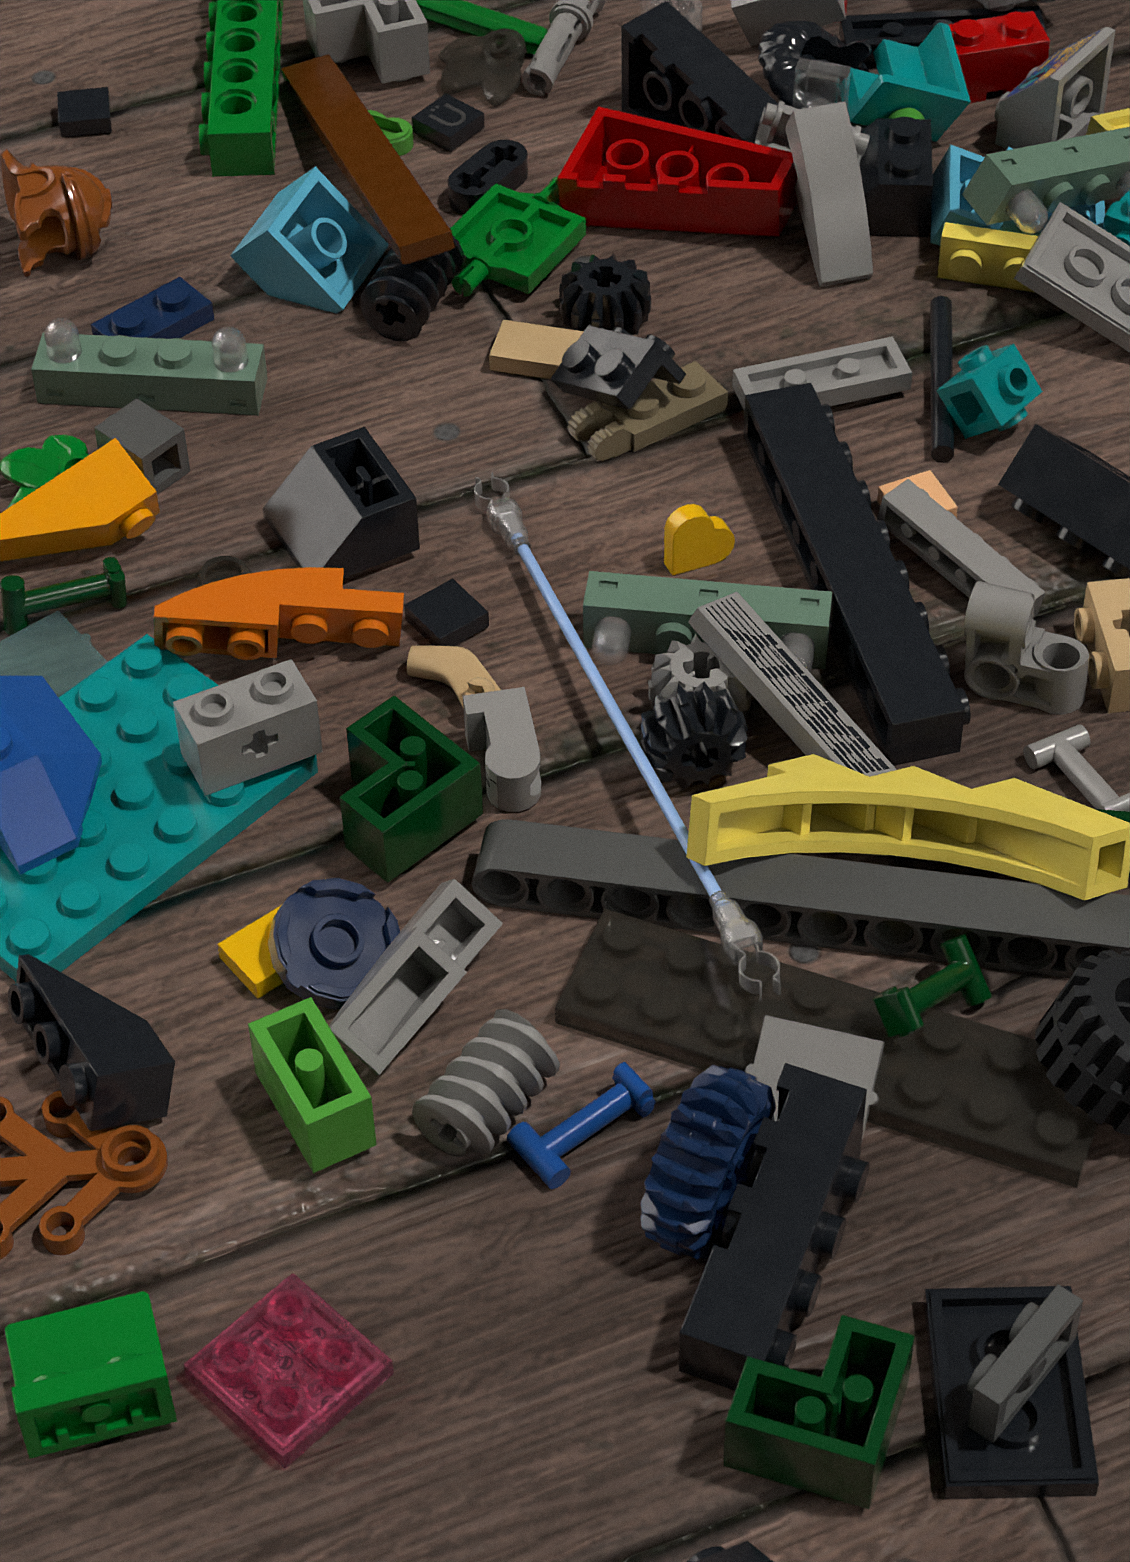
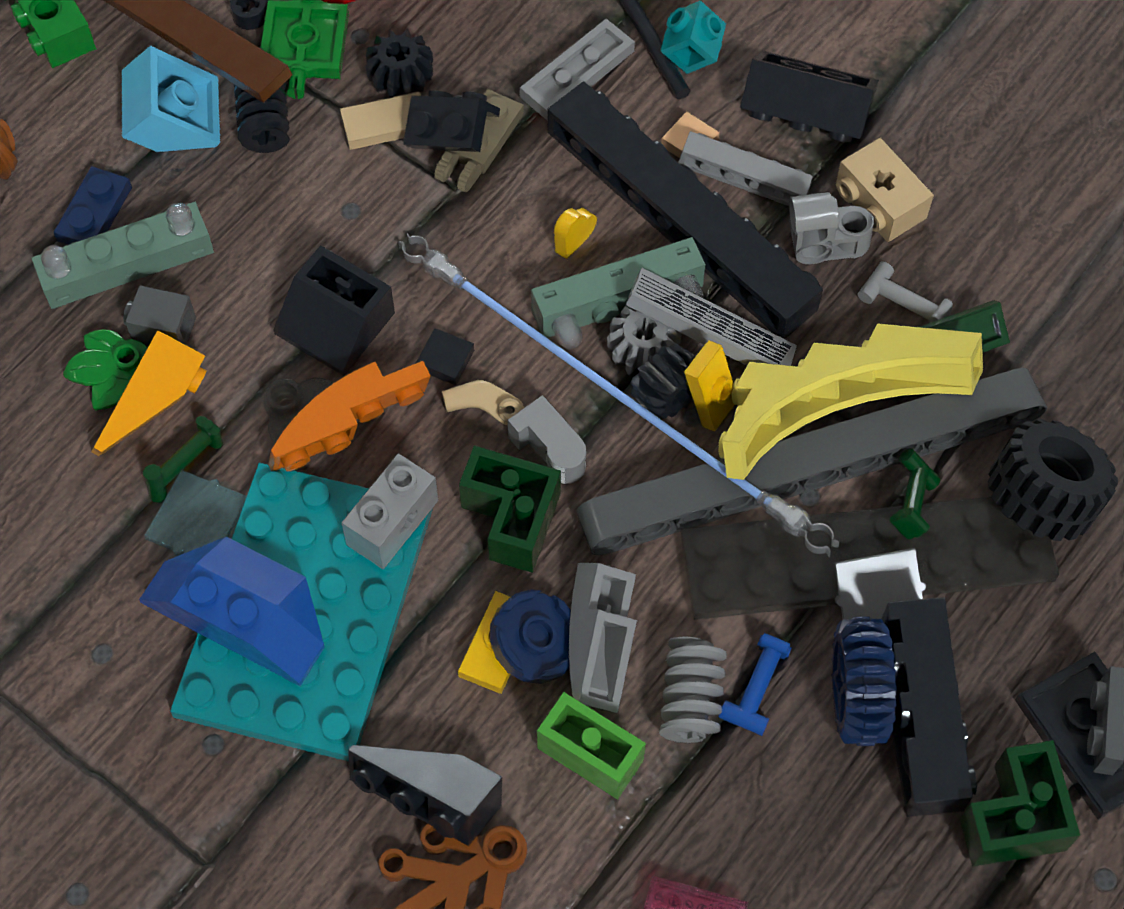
camera: 30 degrees left, 15 degrees up
(739, 739) = (710, 385): none -> yellow plate

